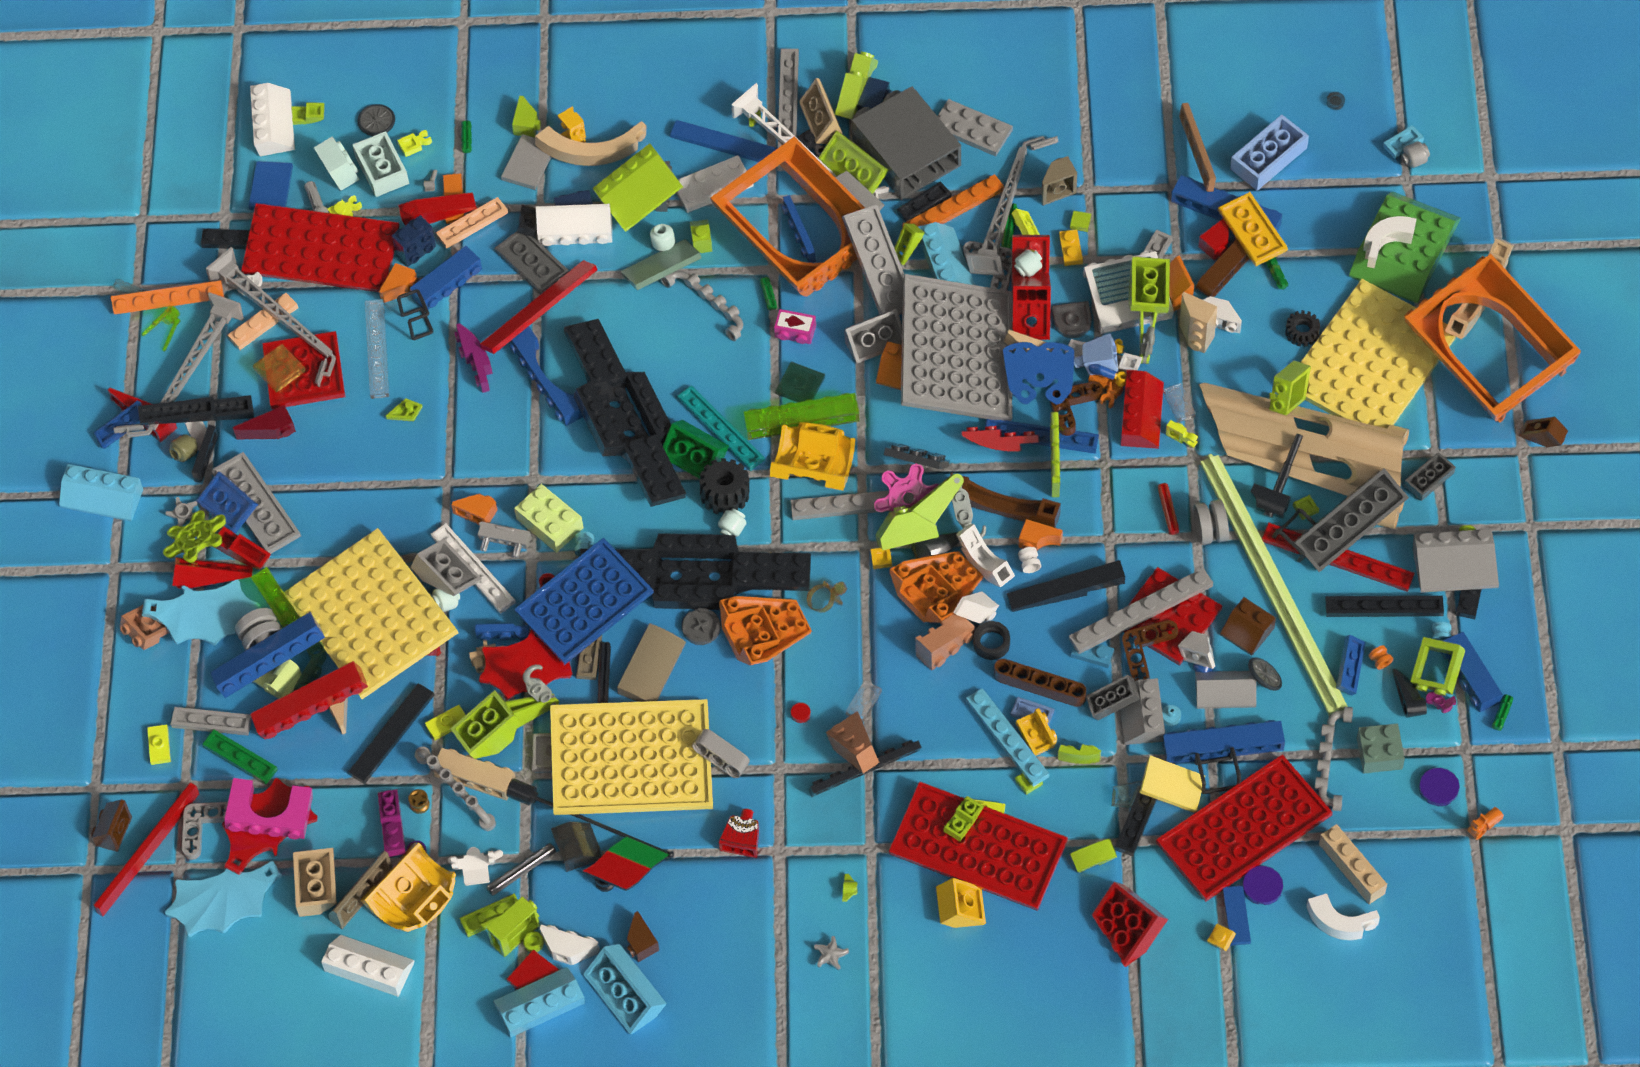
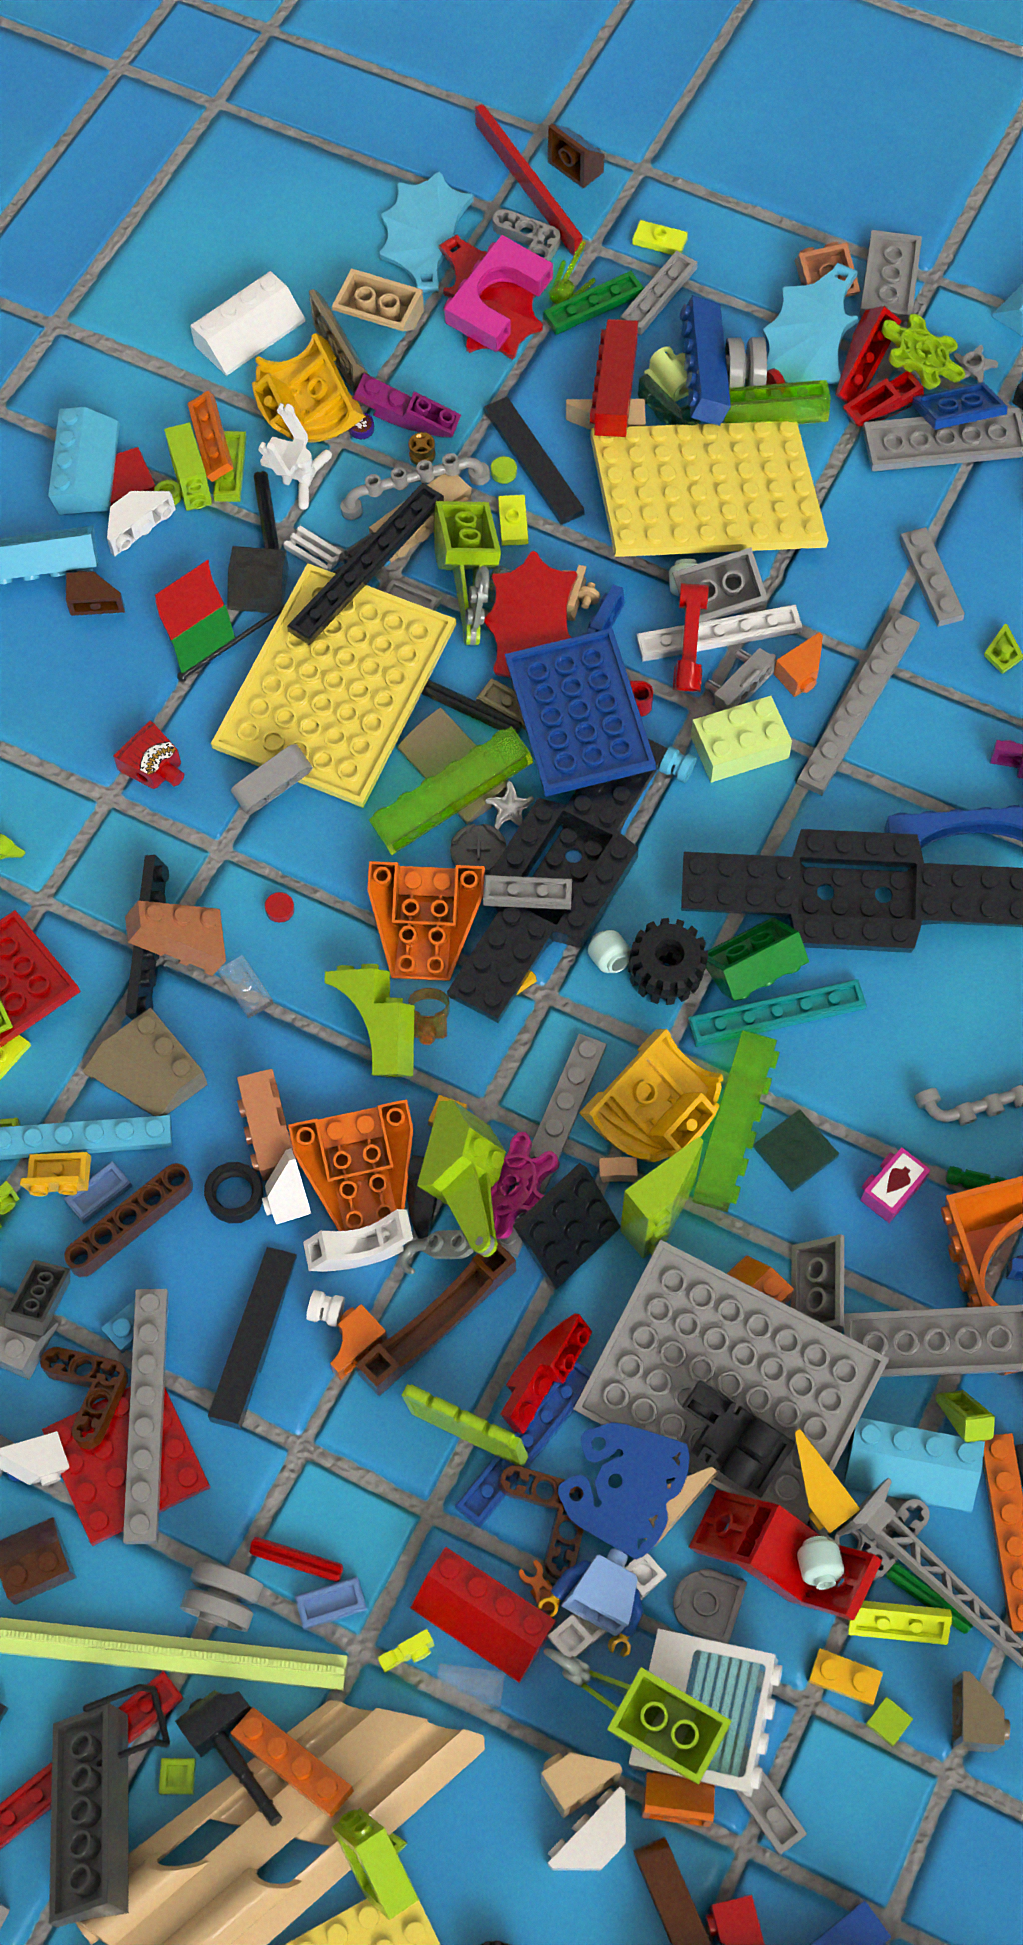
camera: 115 degrees right, 5 degrees up
(128, 588) = (891, 273): none -> light grey plate
(240, 775) = (563, 288): none -> clear neon green plant
(368, 471) = (931, 577): none -> light grey plate
(408, 746) = (503, 469): none -> lime tile
(474, 934) = (210, 436): none -> orange plate
(484, 472) = (858, 704): none -> light grey plate
(517, 566) = (686, 672): none -> red piece
(535, 813) = (319, 549): none -> white tile
(536, 774) = (364, 564): none -> black tile
(664, 619) = (509, 806): none -> light grey animal
(675, 649) = (451, 790): none -> clear neon green brick
(723, 571) = (527, 892): none -> light grey tile
(845, 608) = (386, 1018): none -> lime arch
(863, 460) = (618, 1169): none -> light nougat piece
(876, 411) = (658, 1198): none -> lime slope
(943, 723) = (147, 1066): none -> dark tan wedge
(987, 329) = (736, 1442): none -> black plate
(988, 283) = (825, 1493): none -> yellow slope
(1179, 483) = (330, 1603): none -> medium blue tile
(1268, 448) = (292, 1762): none -> orange plate

